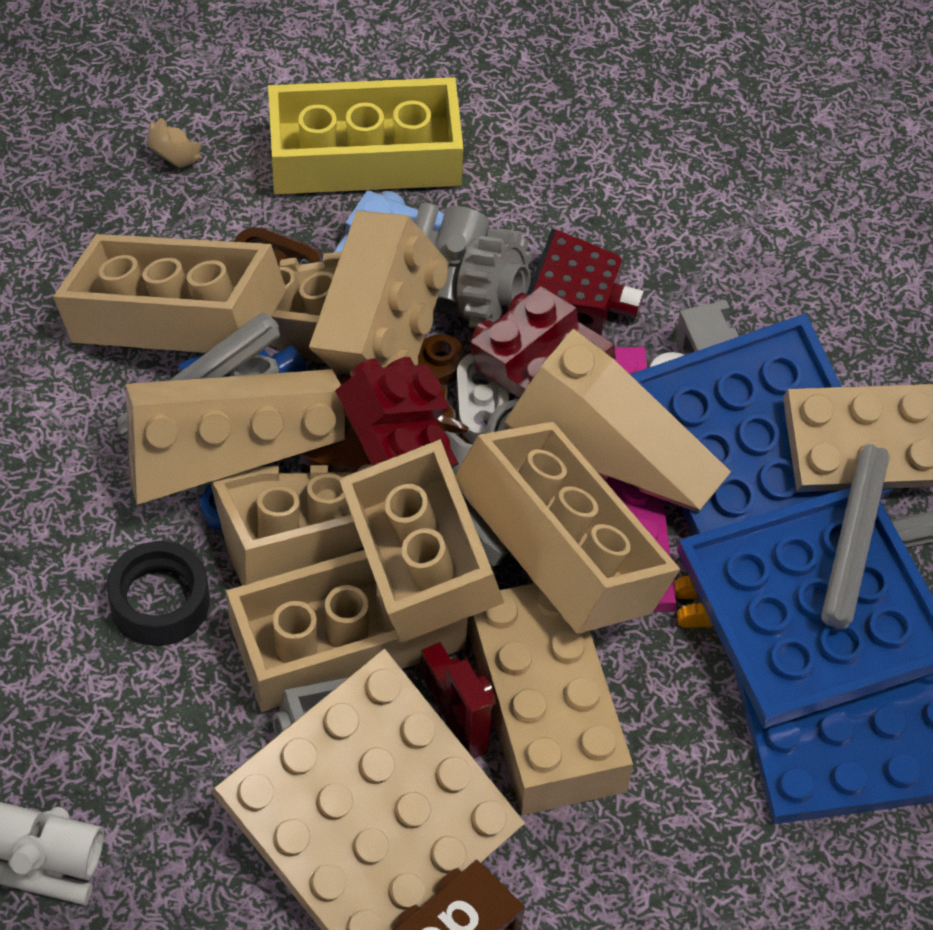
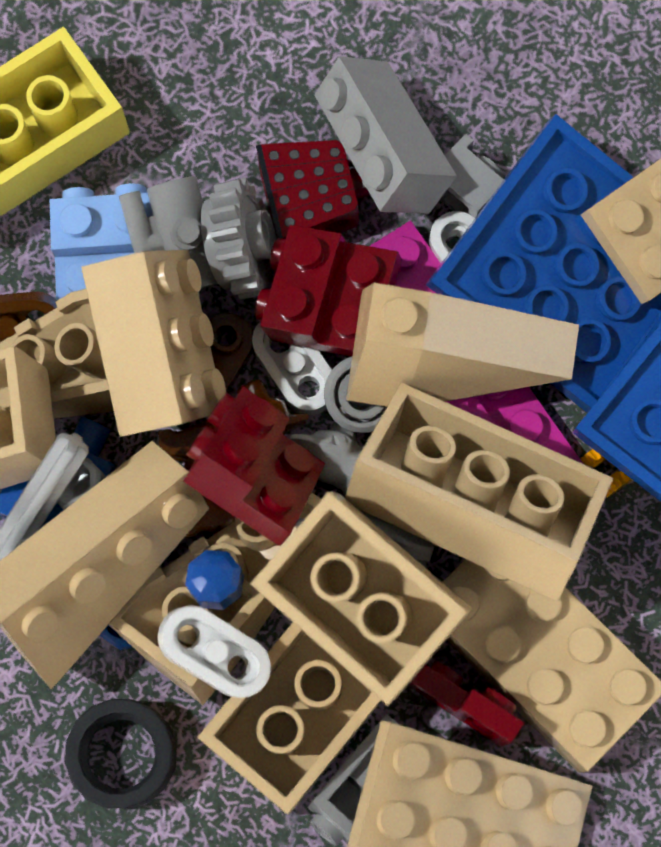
camera: 25 degrees left, 20 degrees up
(280, 530) = (212, 651): none -> white plate
(315, 489) = (214, 579): none -> blue tile
(658, 268) = (384, 136): none -> light grey brick

